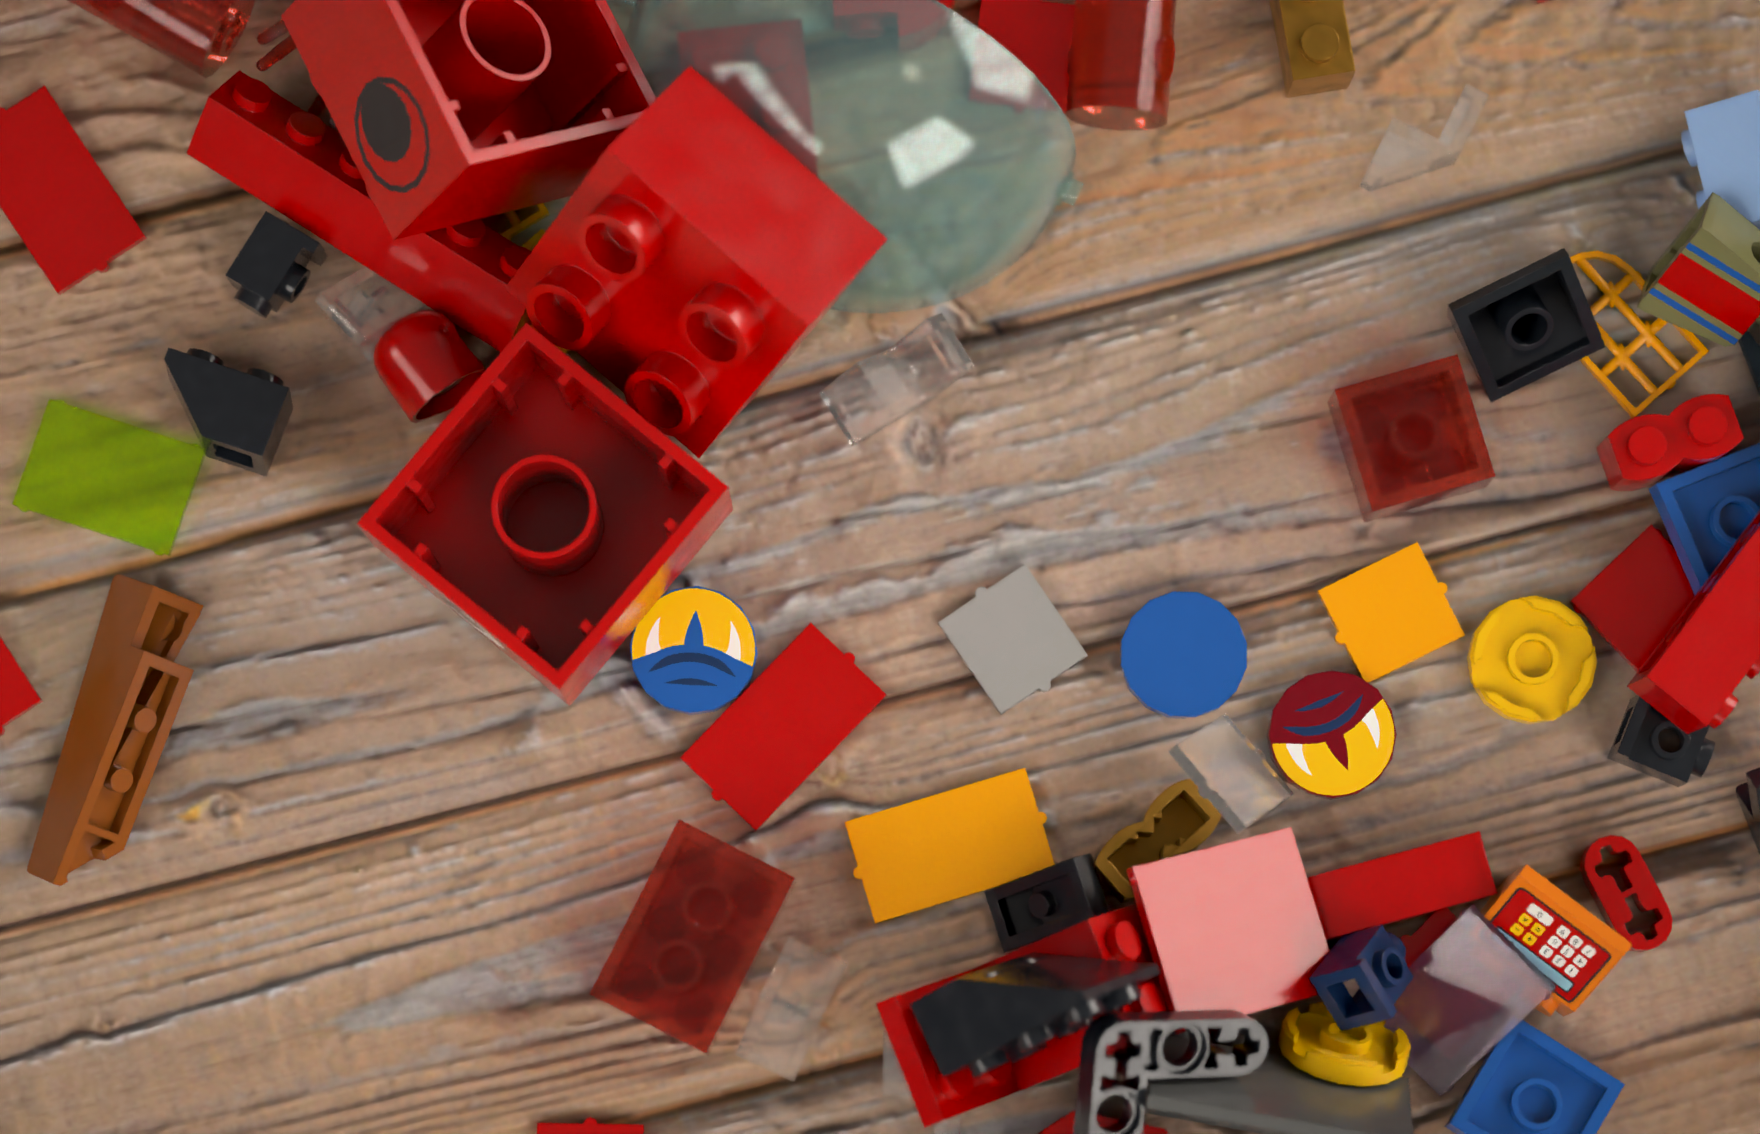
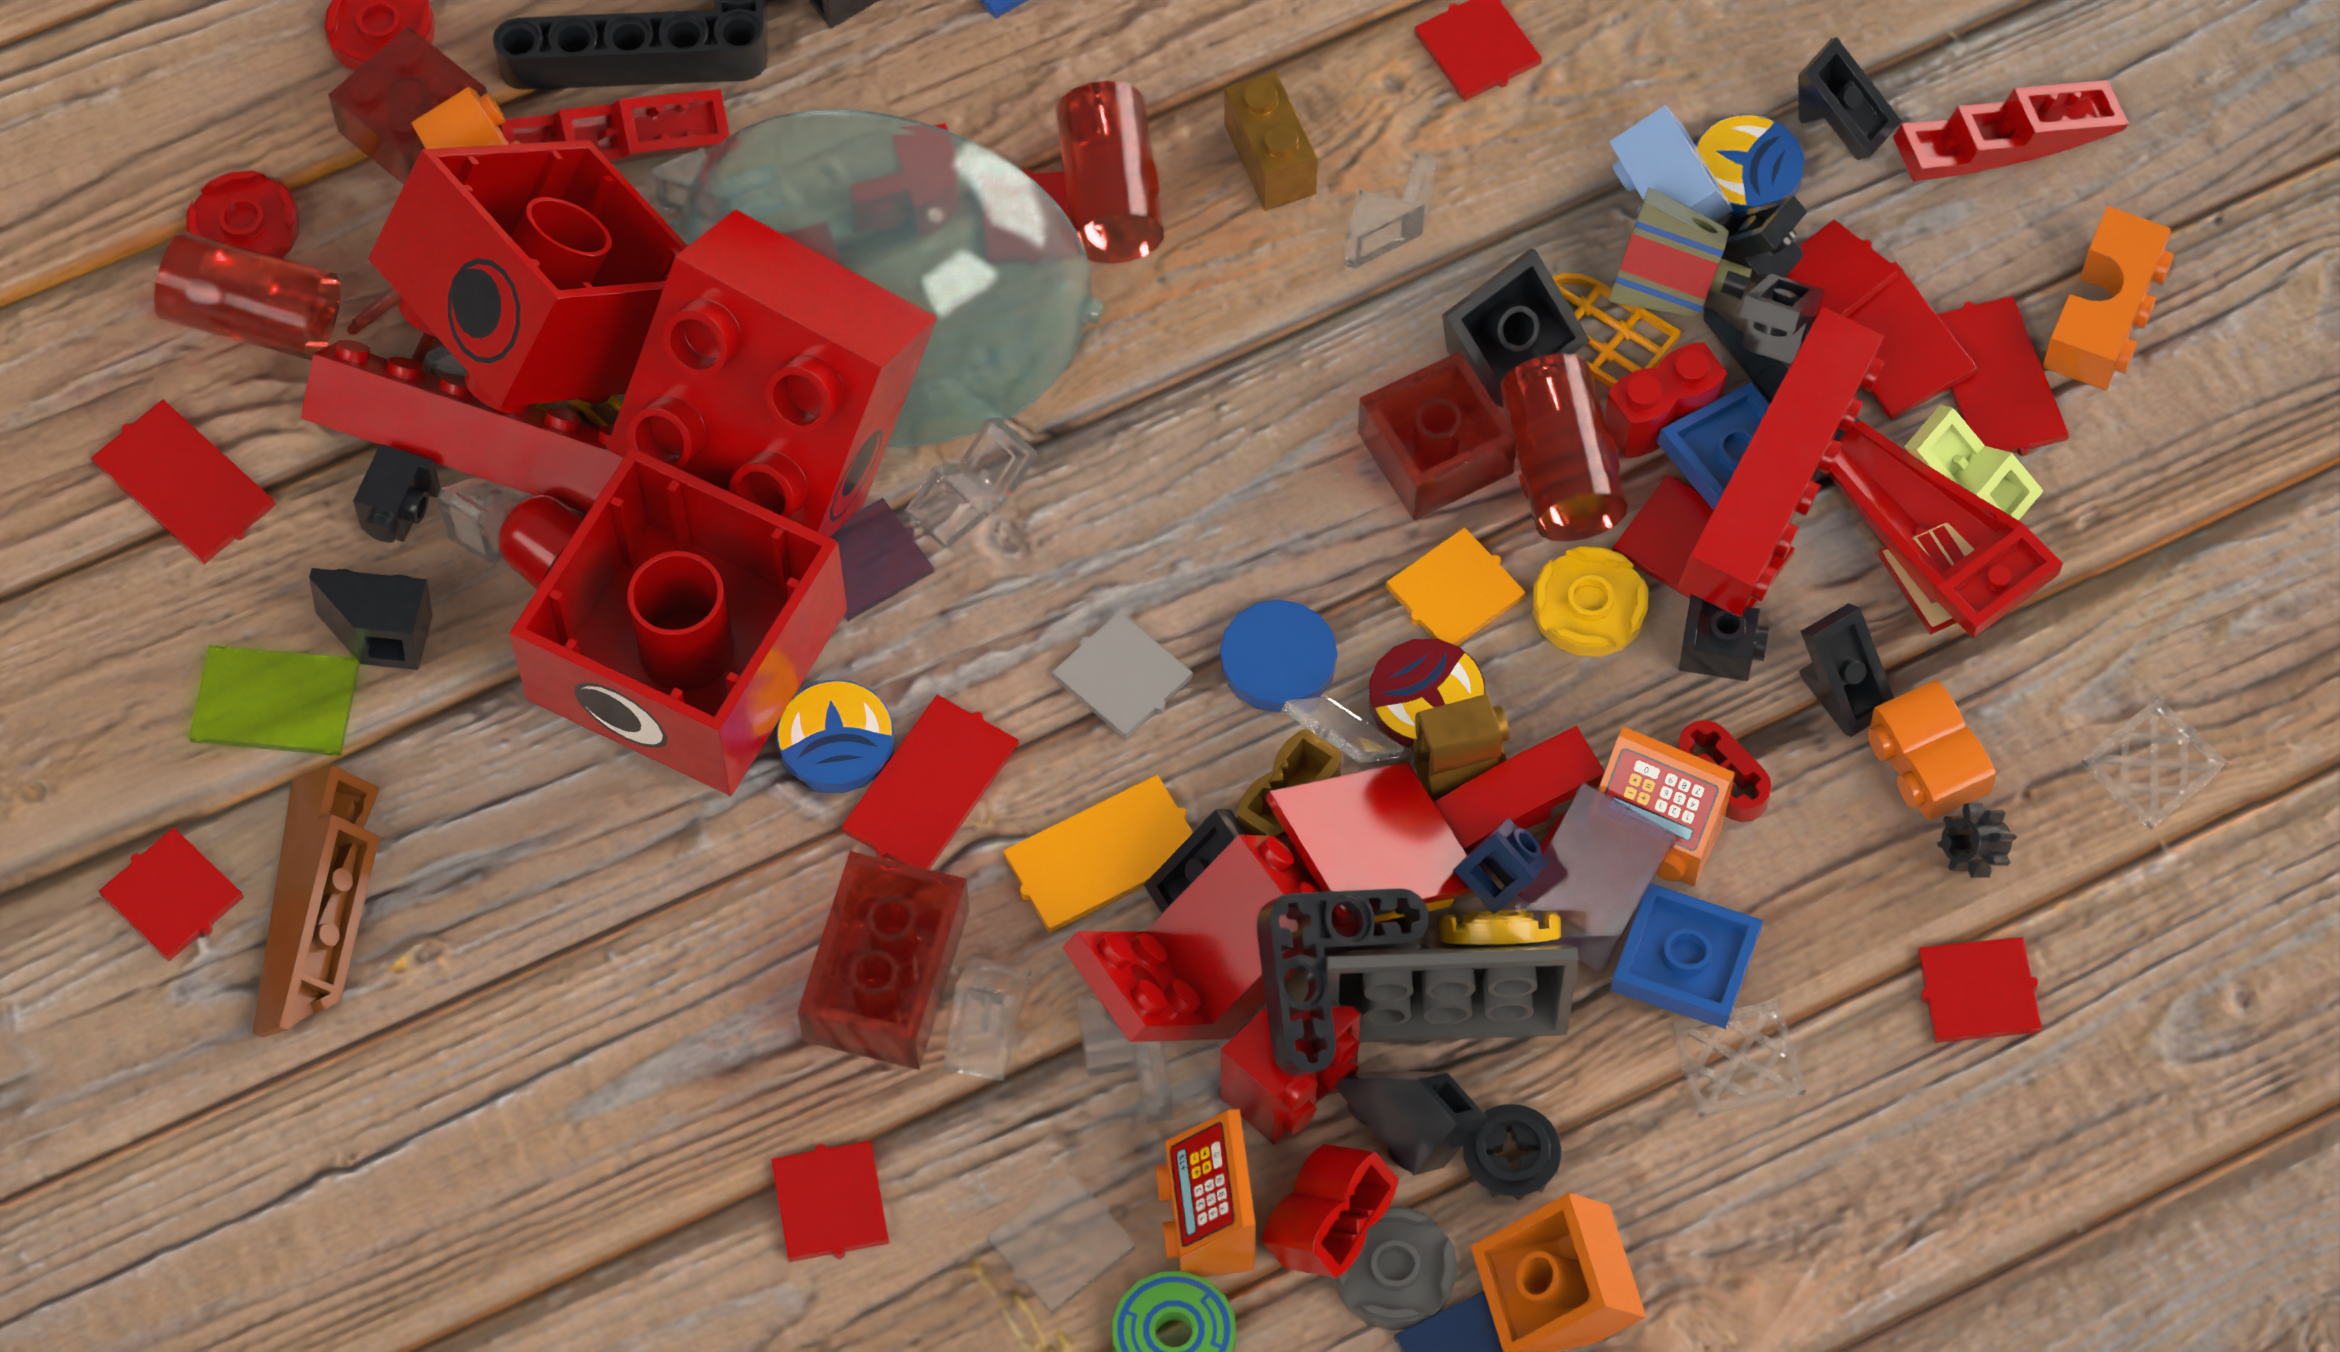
camera: 10 degrees left, 20 degrees down
(772, 444) = (877, 558): none -> clear purple piece
(1021, 1007) = (1193, 917): black slope -> none
(1350, 825) = (1458, 743): none -> pearl gold brick
(1544, 482) = (1563, 448): none -> clear red piece

